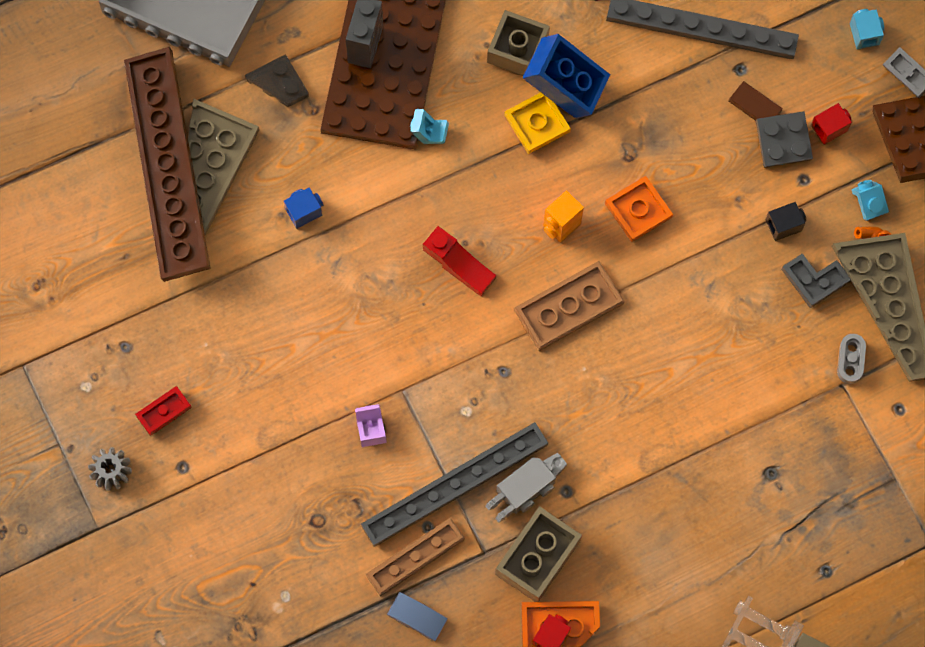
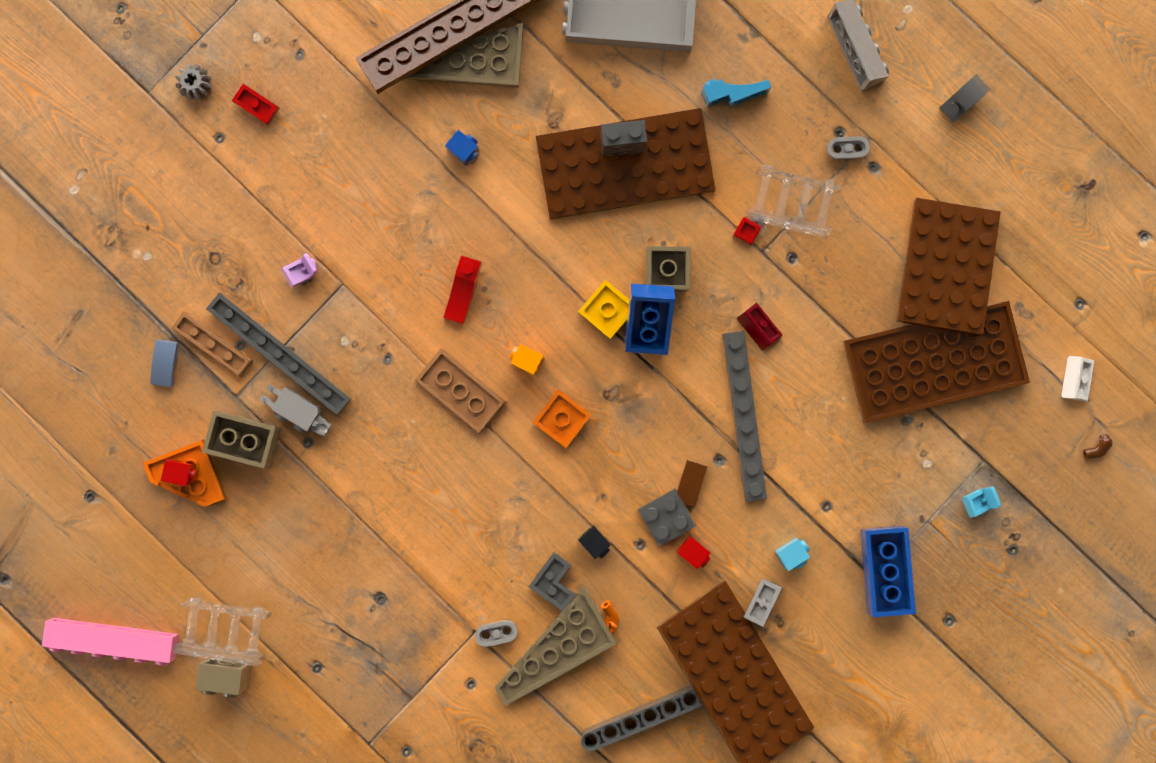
camera: 75 degrees right, 15 degrees up
(279, 81) = (566, 87): clear smoke wing -> none
(427, 129) = (567, 223): medium azure bracket -> none
(871, 199) = (640, 605): medium azure bracket -> none

